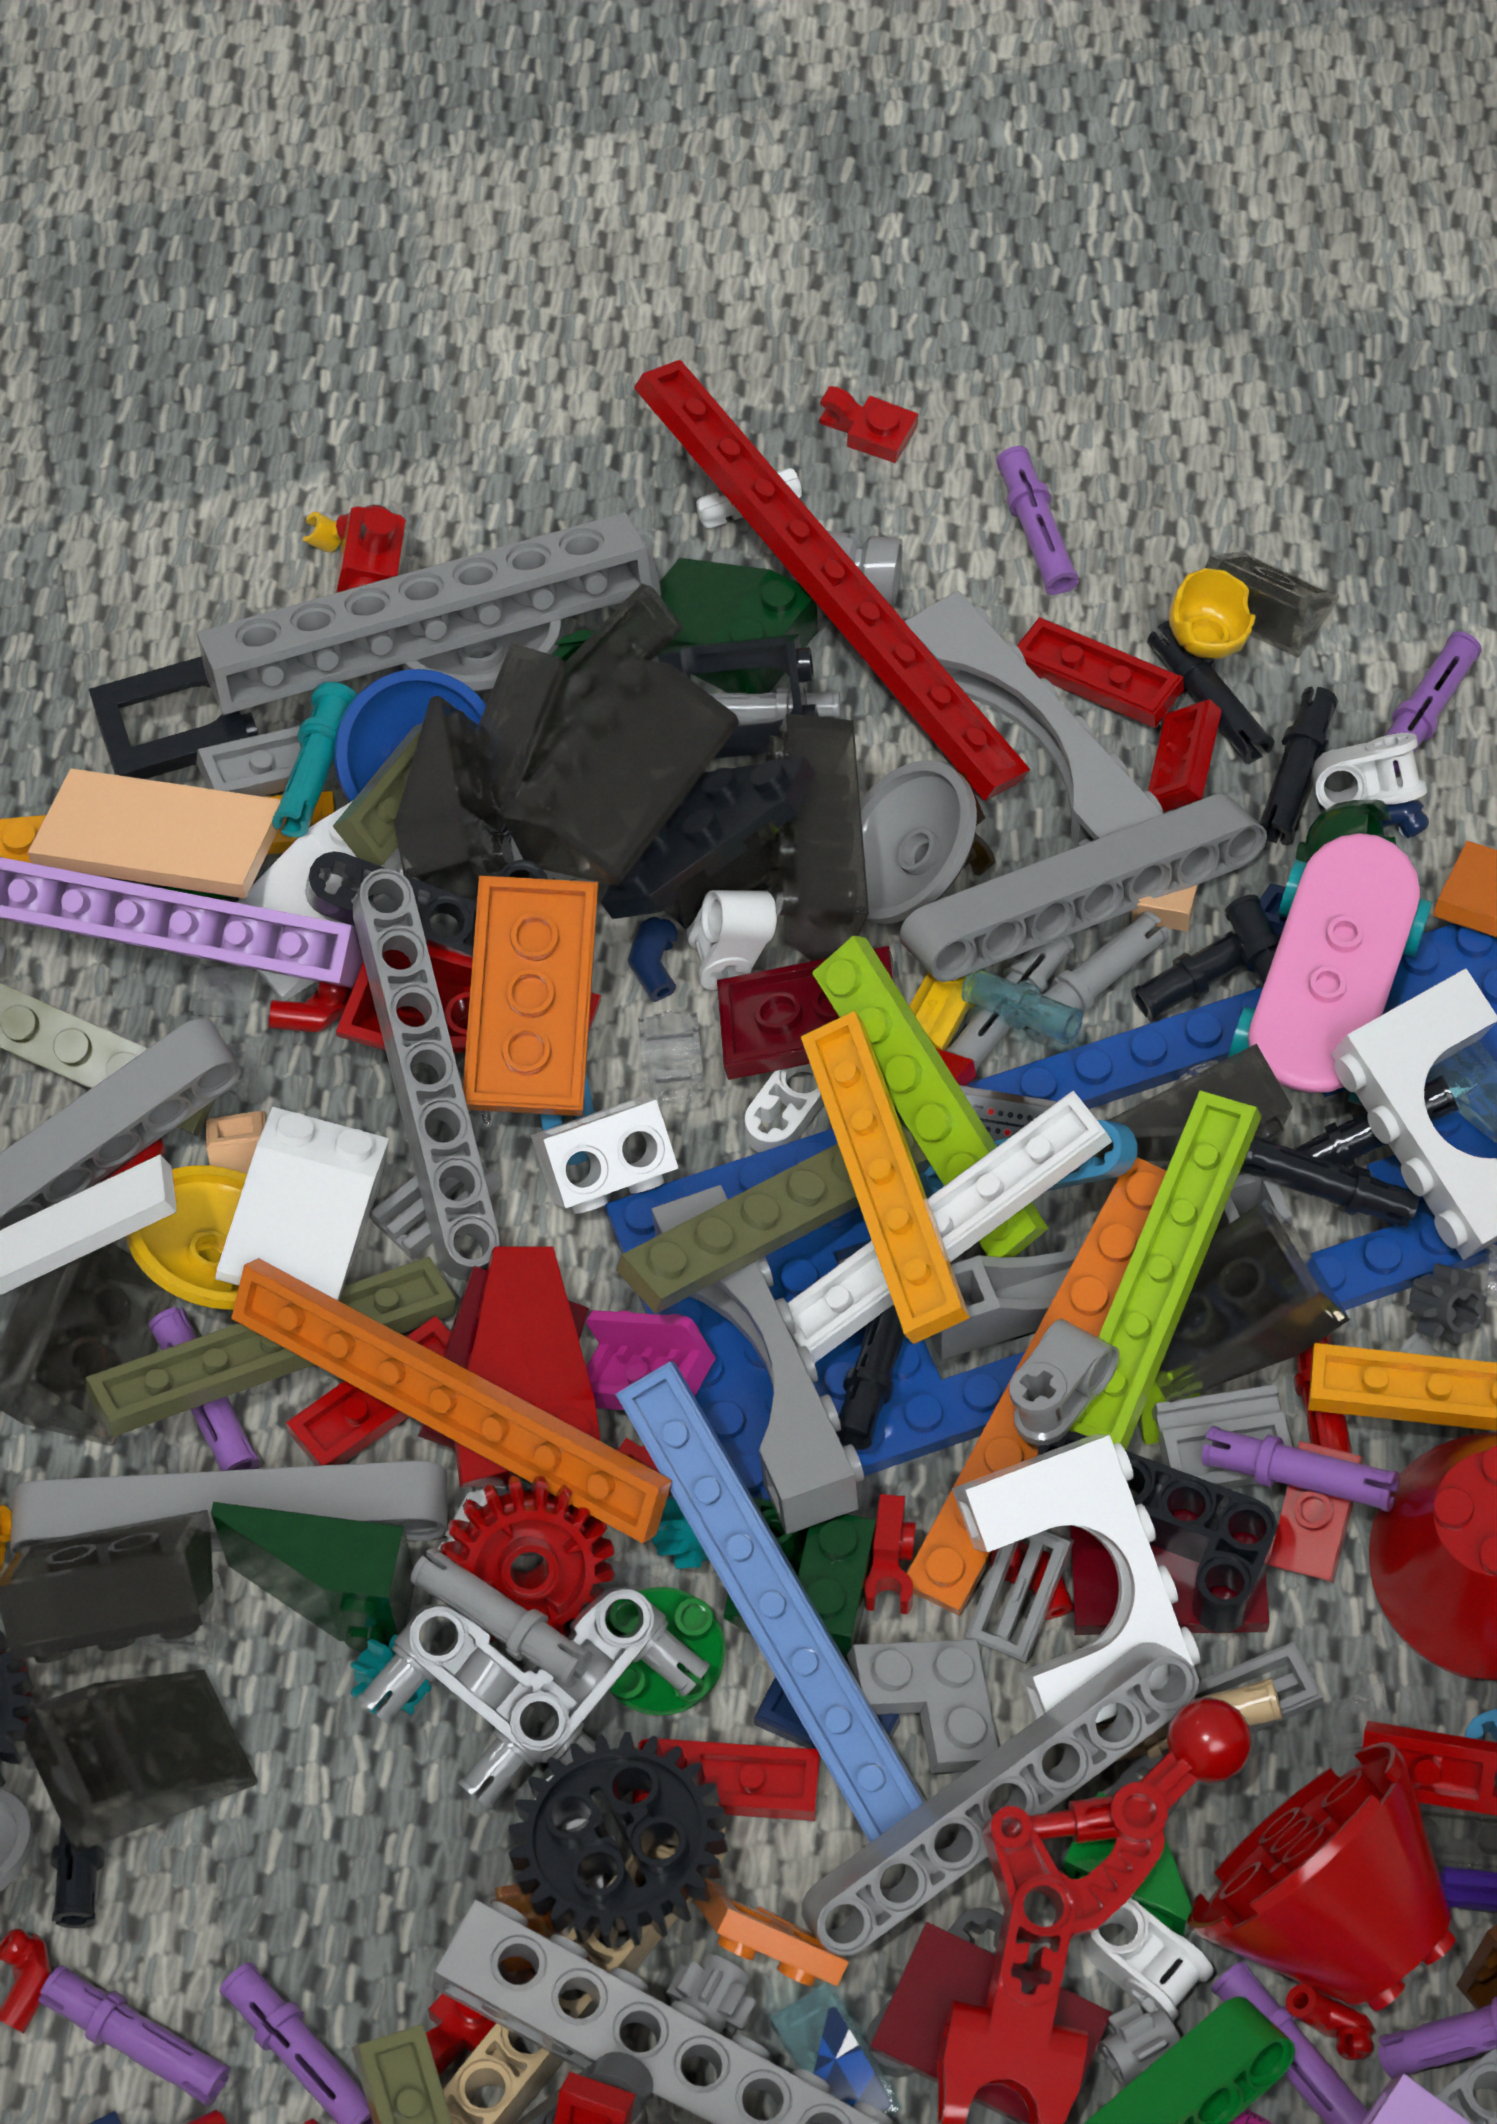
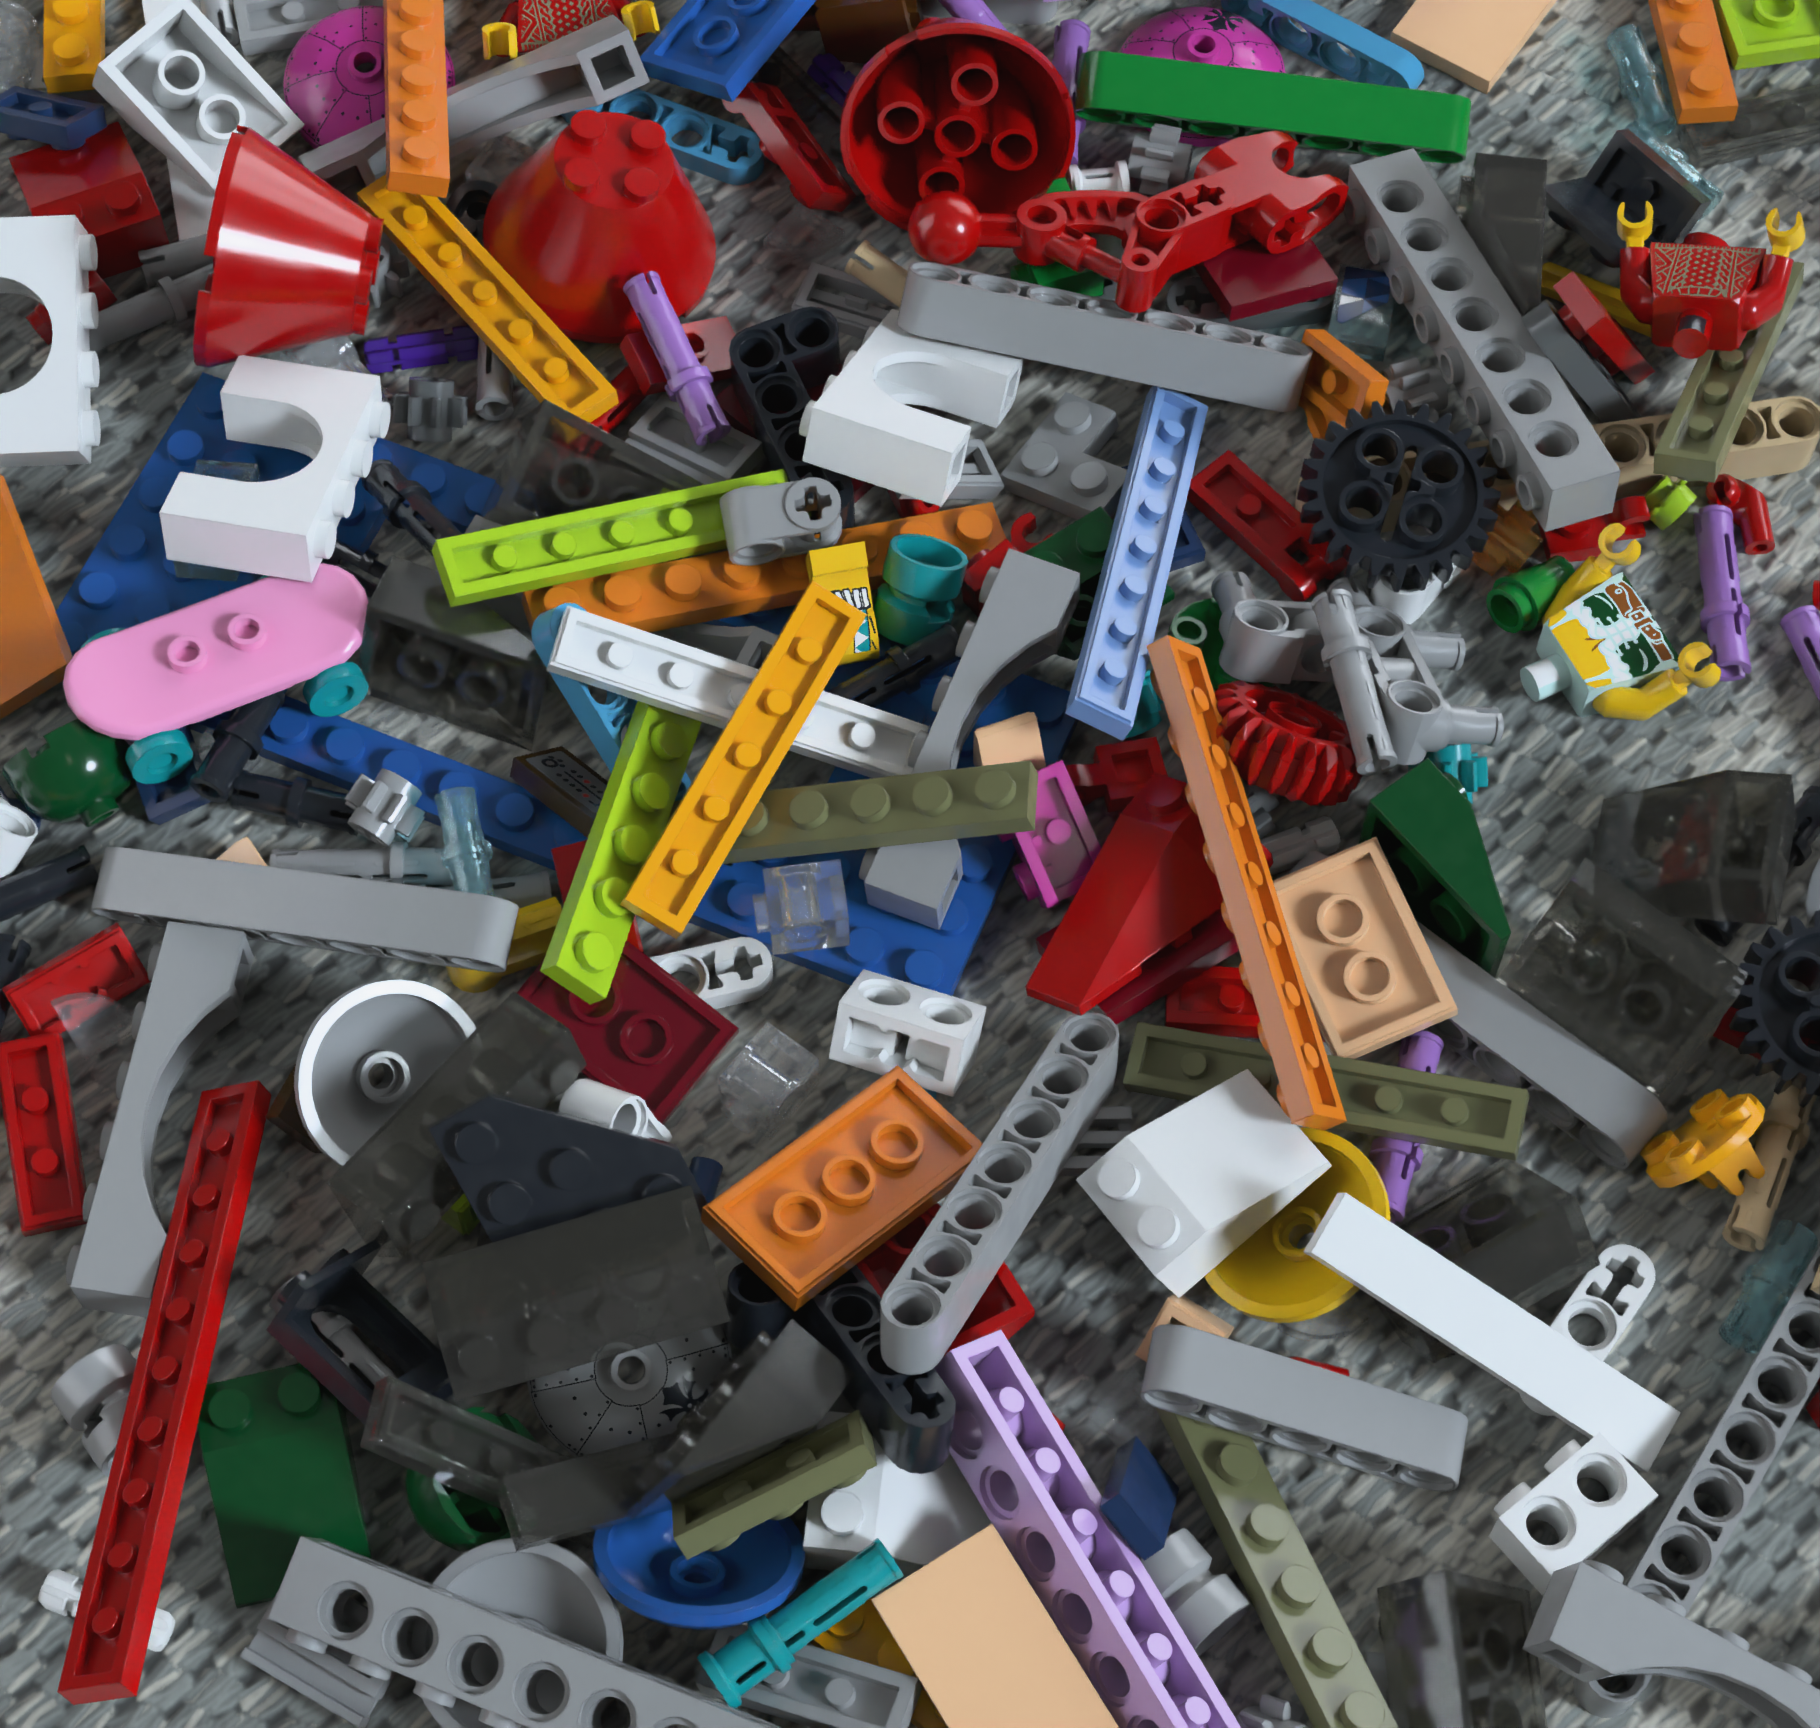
camera: 140 degrees left, 5 degrees up
(100, 980) = (1201, 1602): none -> light grey wheel
(163, 982) = (1139, 1499): none -> dark blue tile
(332, 1454) = (1361, 952): none -> light nougat tile
(347, 1897) = (1608, 647): none -> torso
(452, 1895) = (1524, 596): none -> green cone
(729, 1390) = (1009, 742): none -> light nougat slope
(752, 1151) = (803, 907): none -> clear brick
(922, 1457) = (919, 588): none -> teal wheel
(956, 1382) = (845, 574): none -> yellow leg
(1119, 1000) = (384, 808): none -> light grey gear
(1148, 746) = (93, 1021): none -> clear tile

